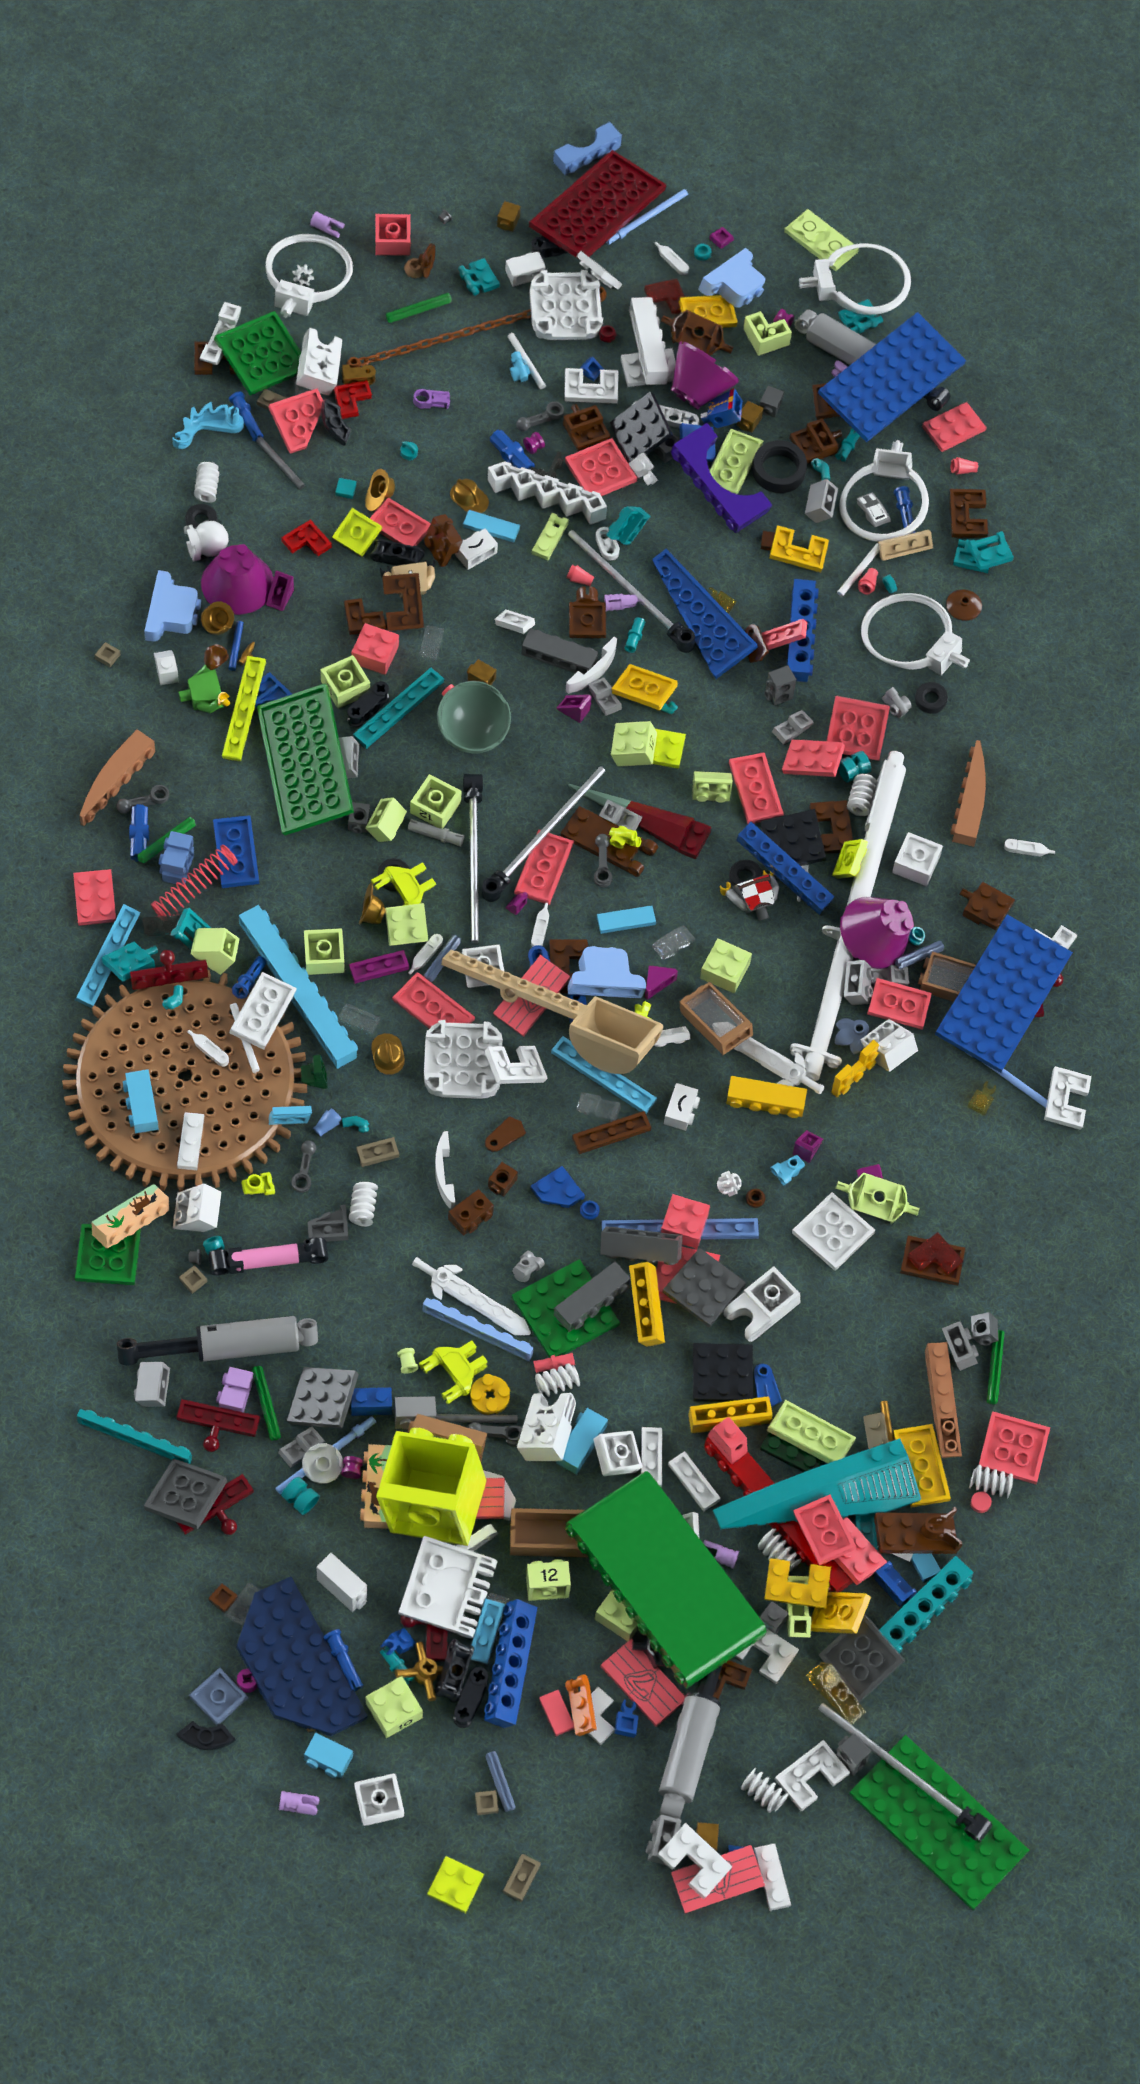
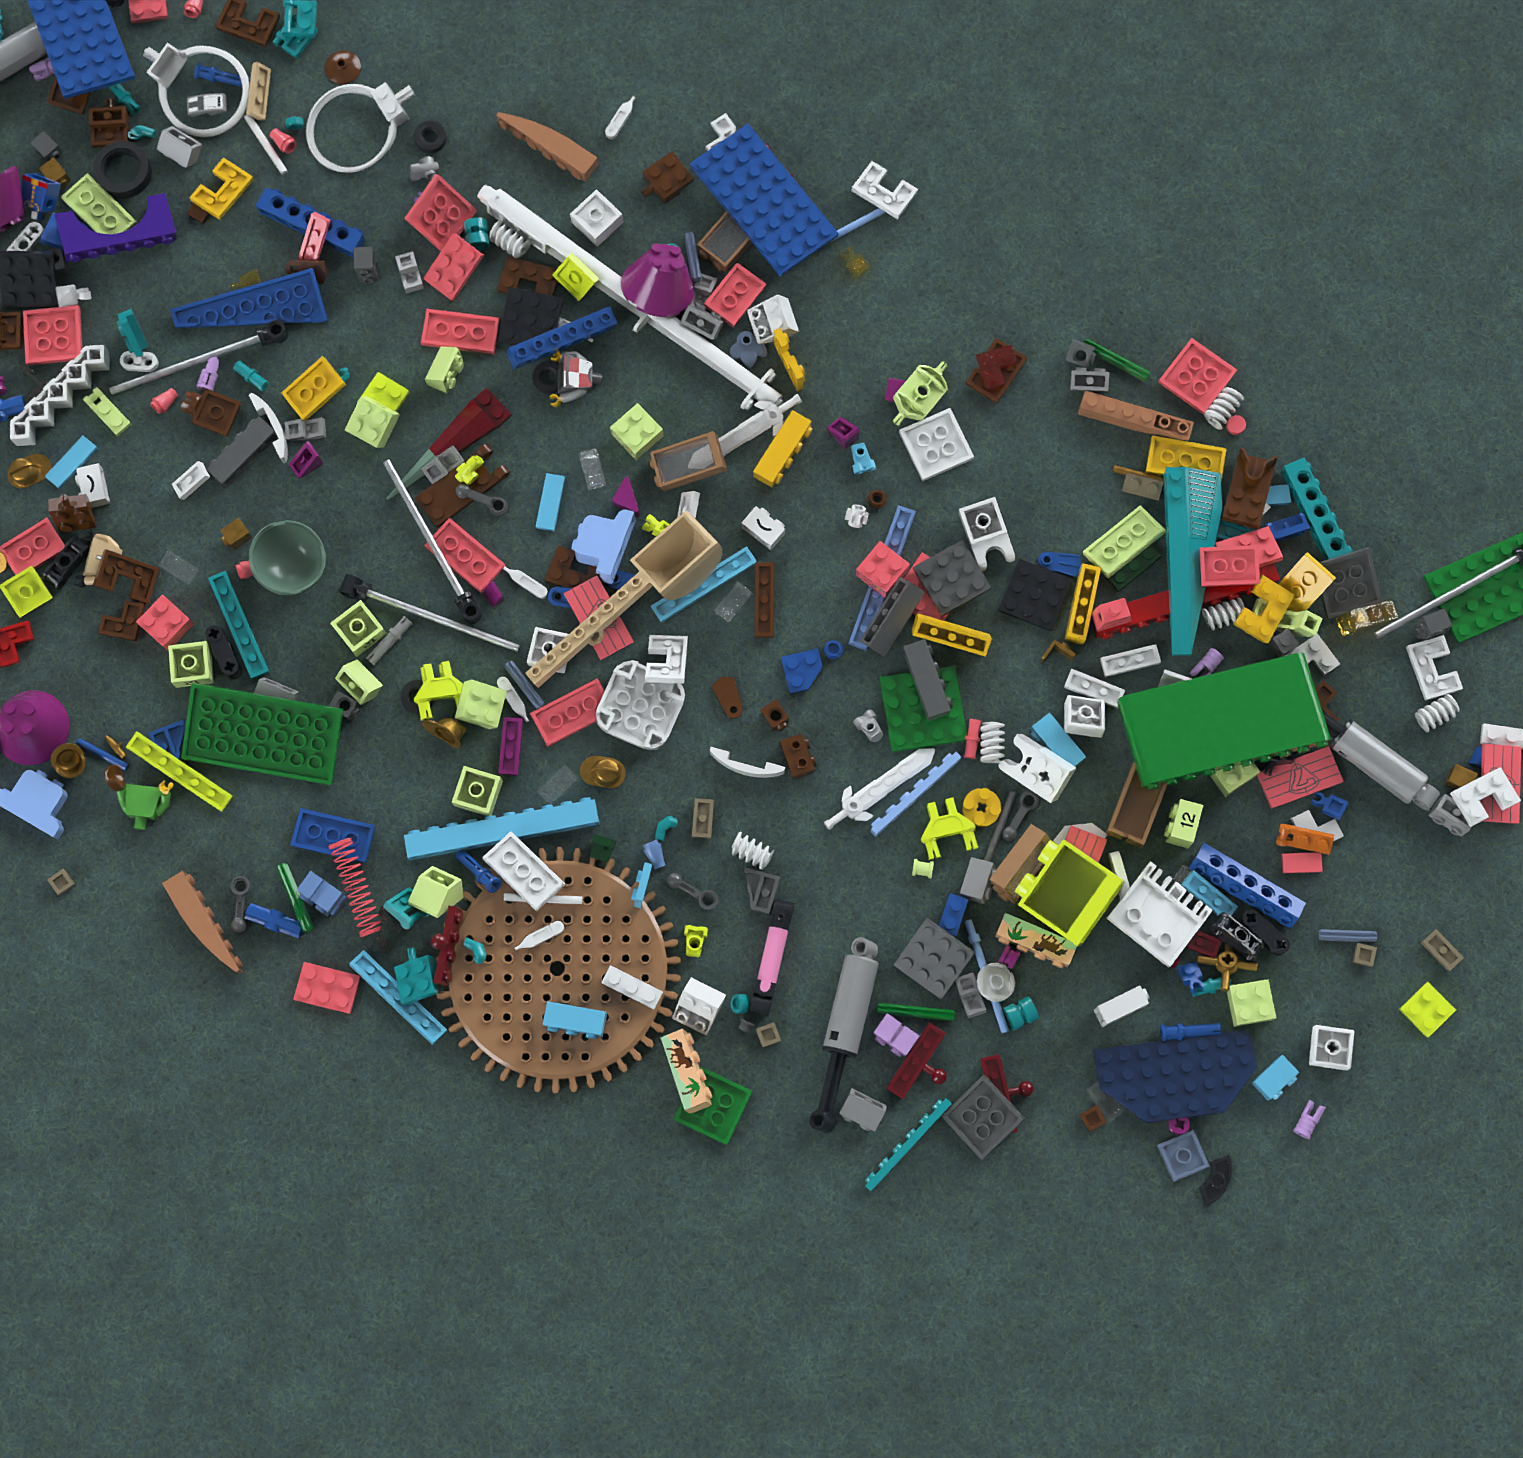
camera: 60 degrees left, 15 degrees up
(166, 667) = (98, 829): white slope -> none
(280, 591) = (61, 689): magenta slope -> none
(677, 1403) = (1062, 648): none -> pearl gold bracket

